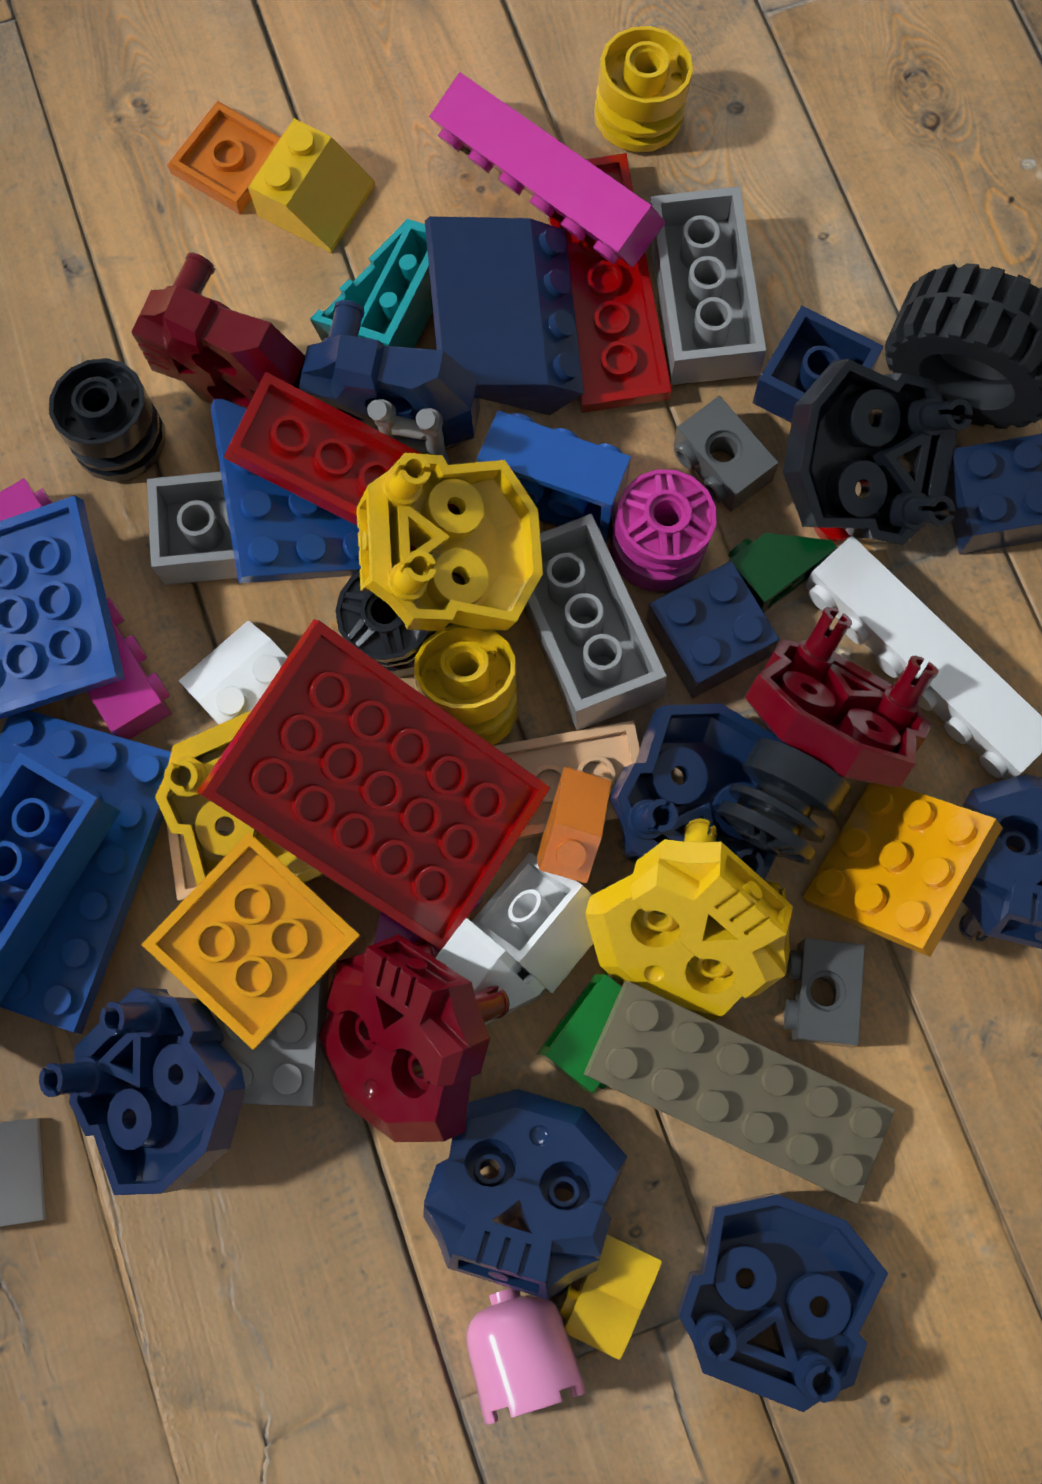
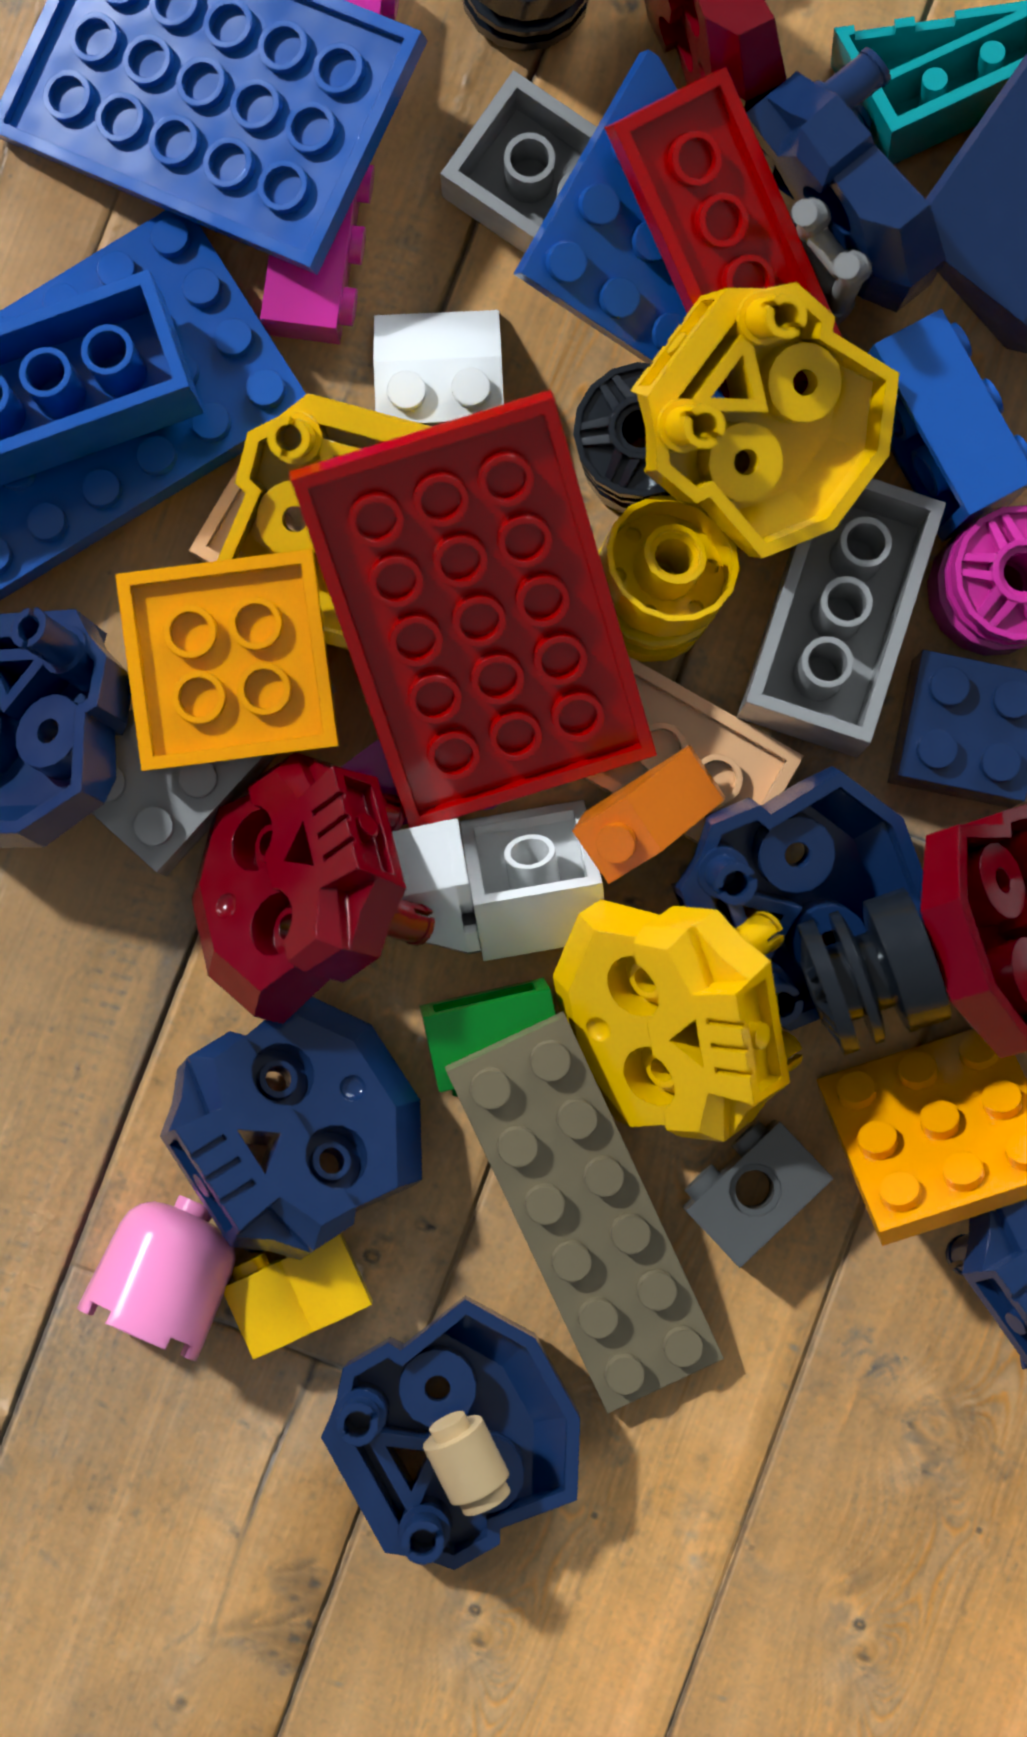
camera: 35 degrees right, 10 degrees up
(805, 1308) = (467, 1462): none -> tan brick

